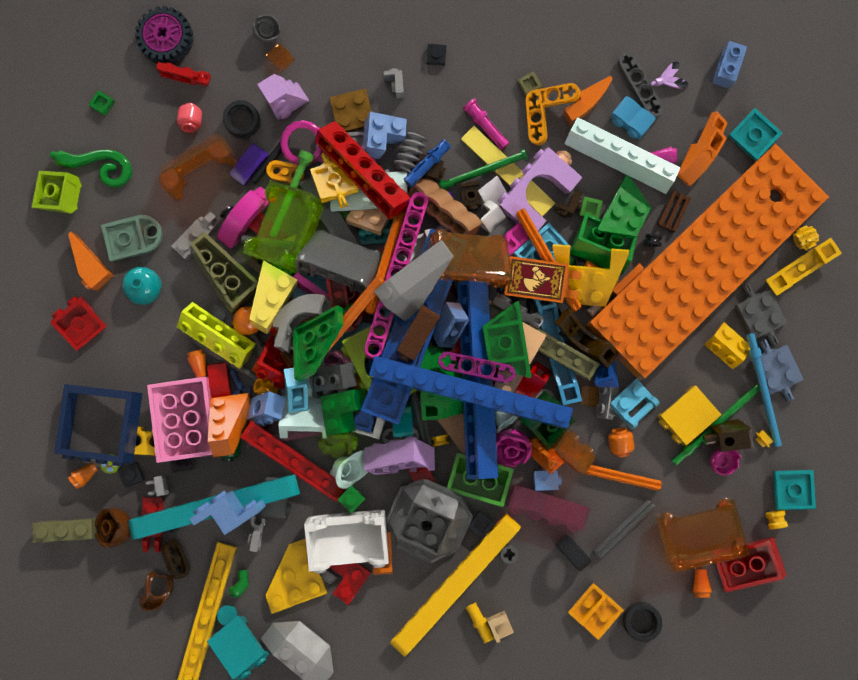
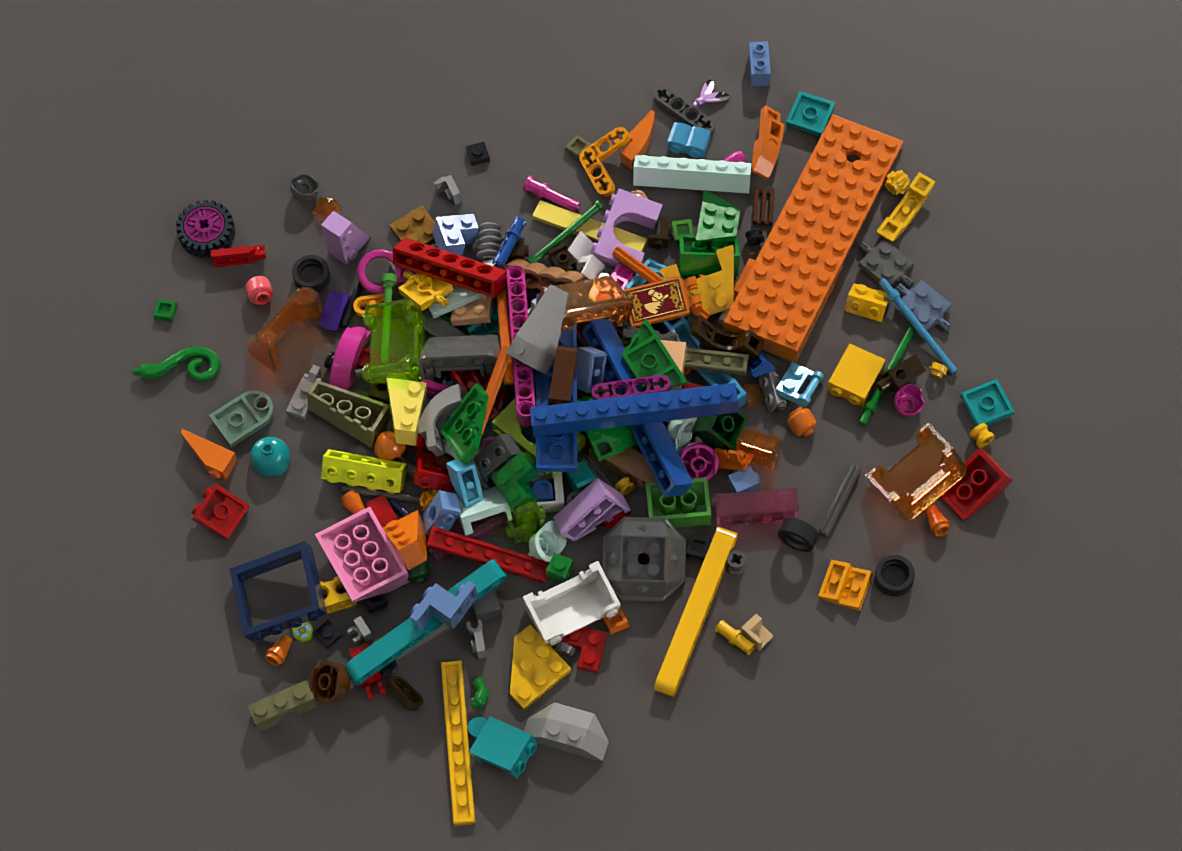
camera: 20 degrees left, 20 degrees down
(56, 192) = (151, 401): lime slope -> none
(151, 602) = (395, 739): reddish brown piece -> none
(624, 477) = (818, 454): orange axle -> none

